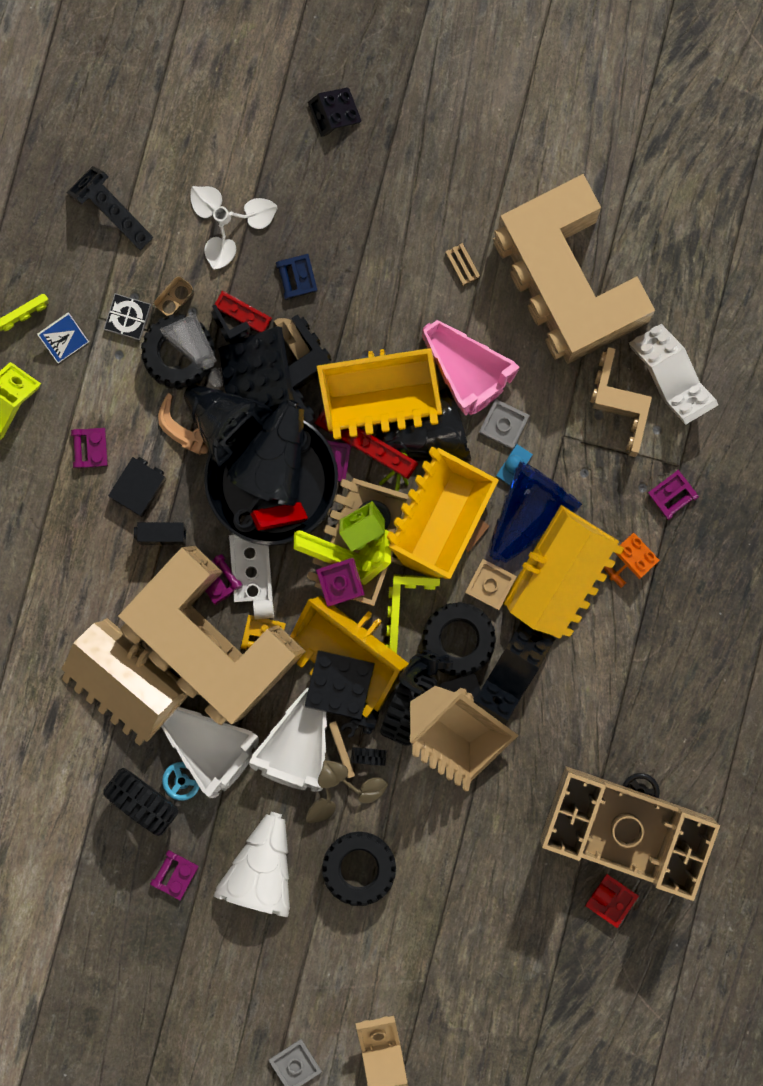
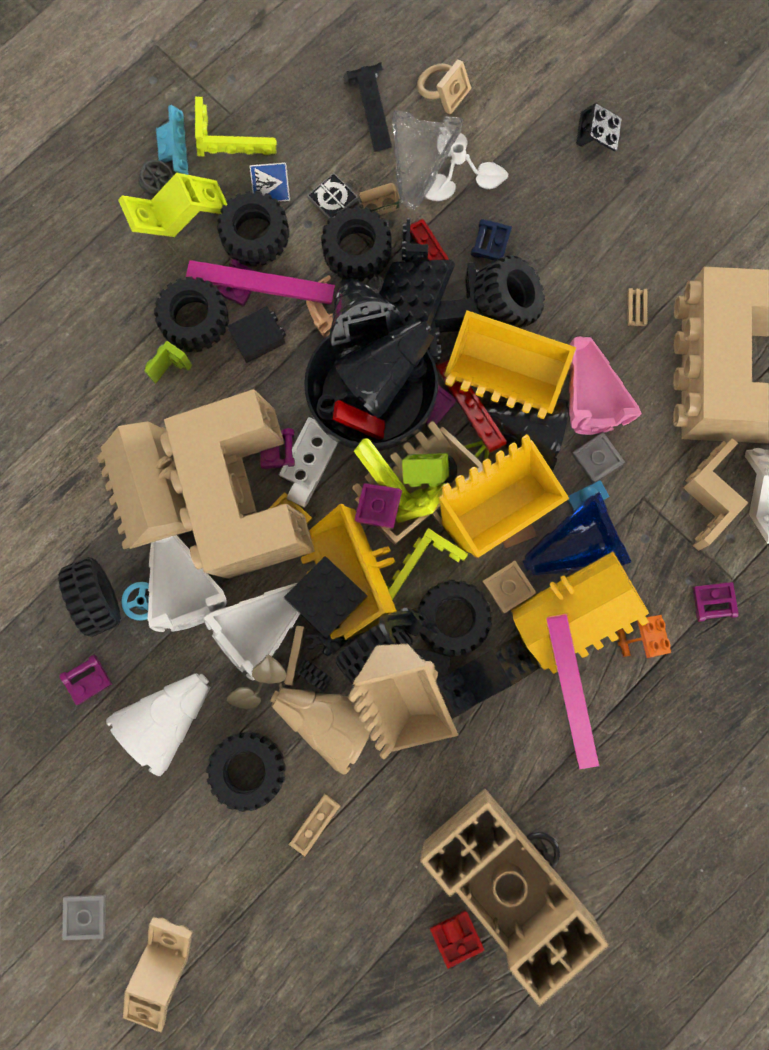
camera: 30 degrees right, 5 degrees down
(43, 498) = (187, 292): none -> black tyre
(57, 373) = (245, 208): none -> black tyre
(69, 553) = (165, 356): none -> lime bracket
(112, 437) = (262, 282): none -> dark pink tile
(160, 533) = (248, 378): black brick -> none
(177, 149) = (451, 88): none -> tan tile
(186, 233) = (420, 153): none -> clear cone
(190, 341) = (370, 229): clear slope -> none
(293, 337) = (459, 283): tan slope -> none
(356, 312) = (509, 292): none -> black tyre
(402, 790) = (325, 723): none -> tan cone
(441, 879) = (314, 825): none -> tan tile
(592, 643) = (572, 691): none -> dark pink tile

